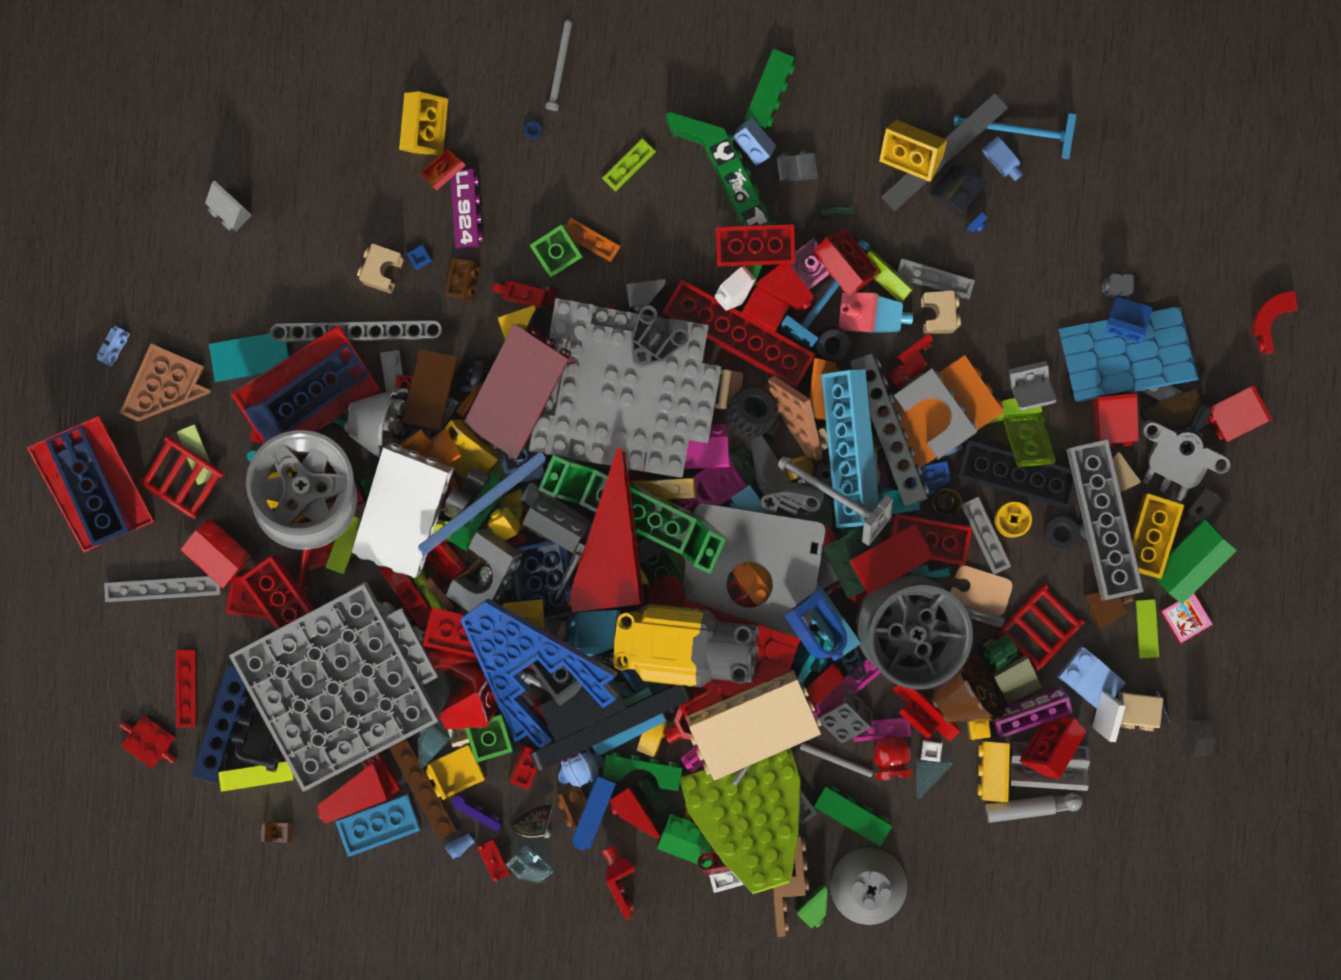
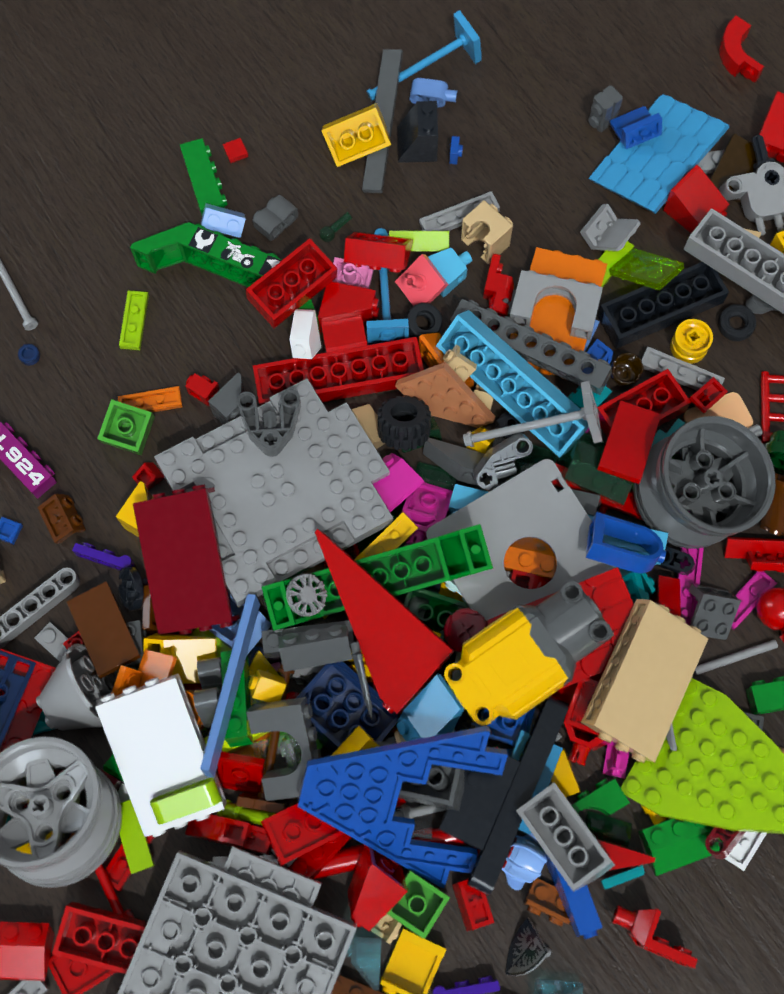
camera: 45 degrees left, 15 degrees down
(394, 554) = (185, 801): none -> beam
(470, 335) = (103, 557): none -> dark purple plate
(521, 294) = (121, 488): red hinge -> none
(578, 484) = (306, 595): none -> light grey wheel
(613, 777) = (565, 837): none -> light grey slope
(631, 830) = (622, 877): none -> teal tile
(634, 262) = (201, 388): none -> red brick
(814, 83) = (235, 150): none -> red tile
(821, 403) = (460, 364): none -> tan bracket
(983, 570) = (708, 395): none -> red slope

